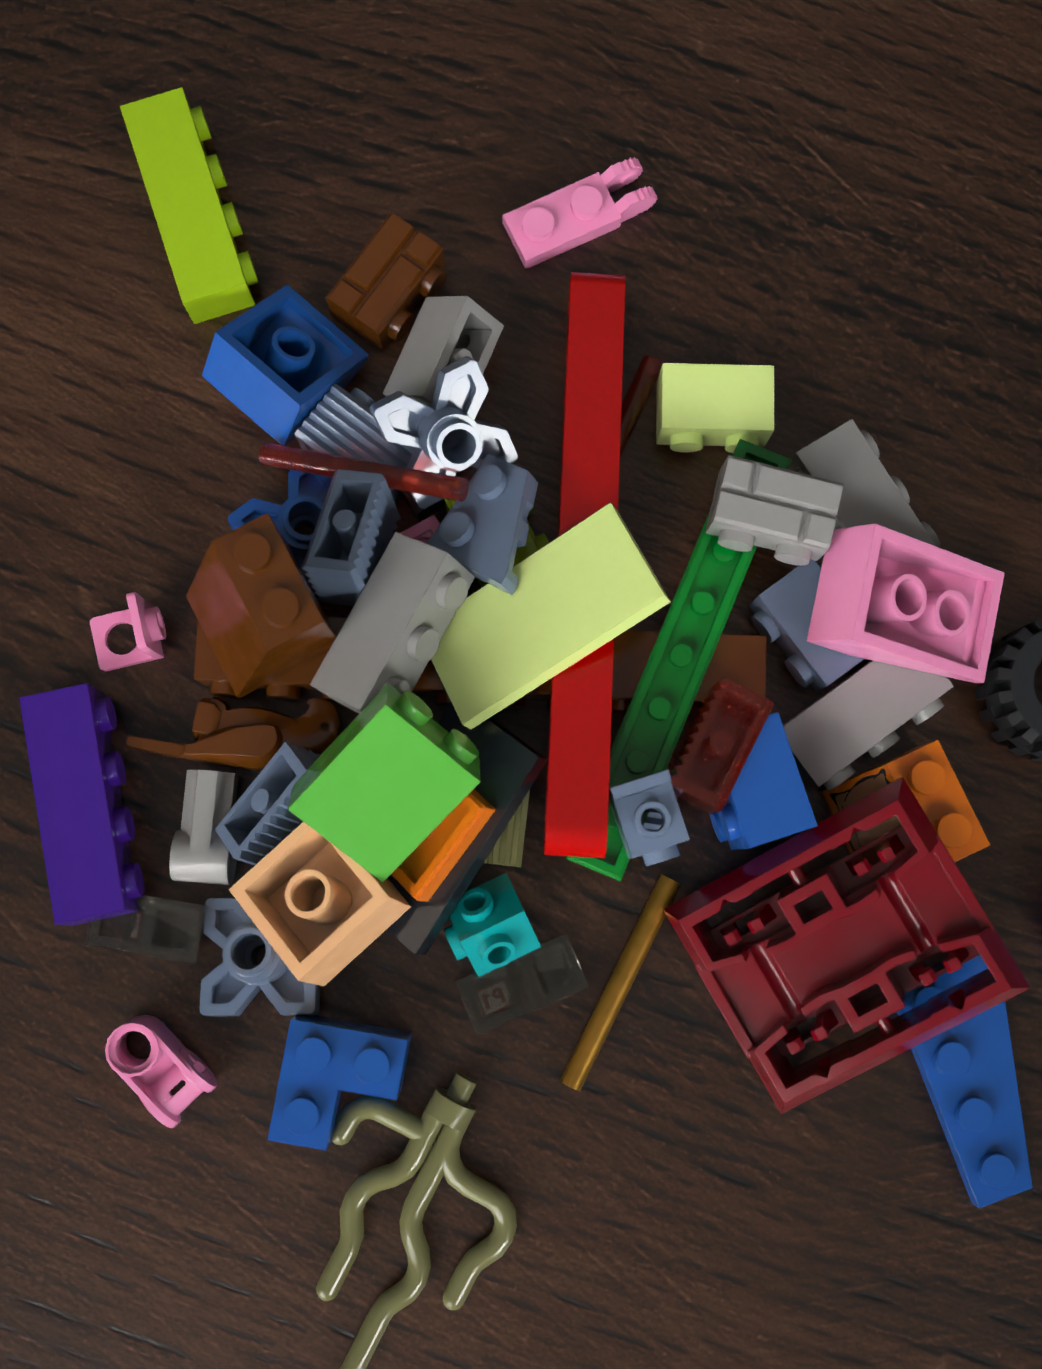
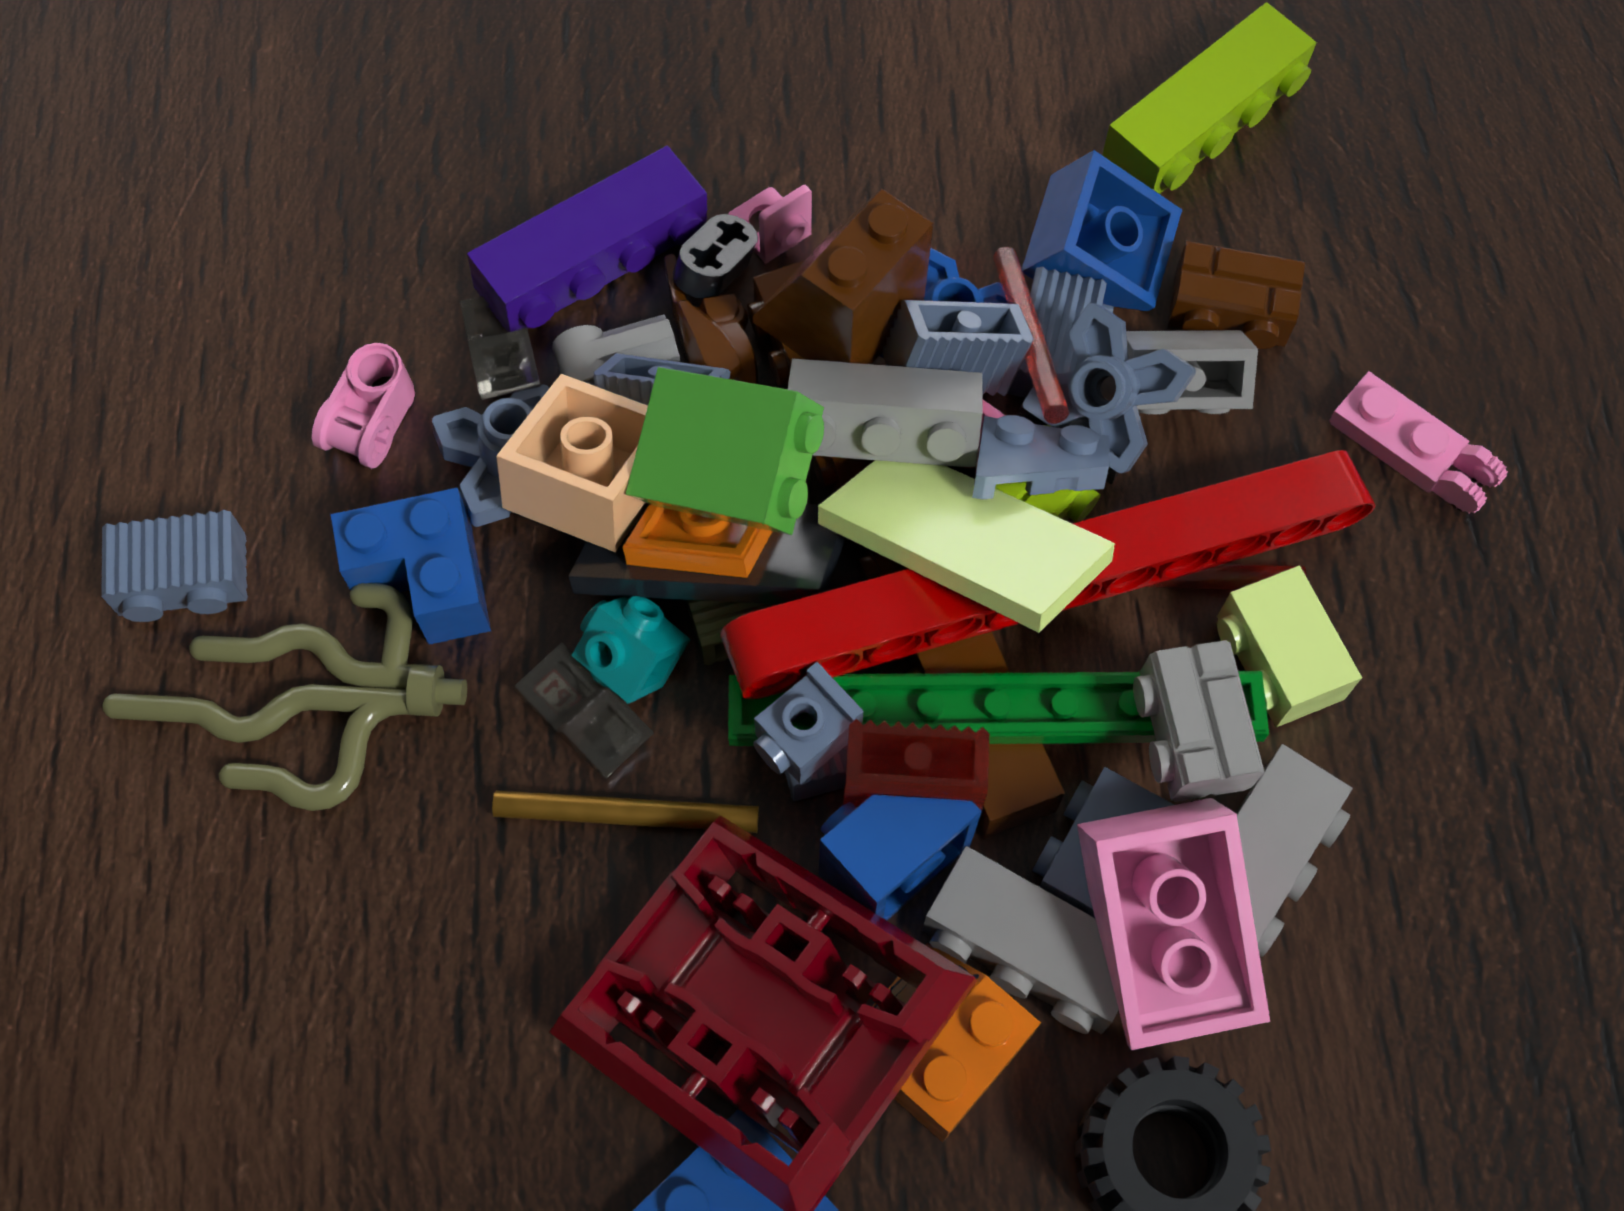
camera: 70 degrees right, 15 degrees down
(139, 706) = (709, 249): none -> black beam
(239, 1291) = (174, 565): none -> sand blue brick

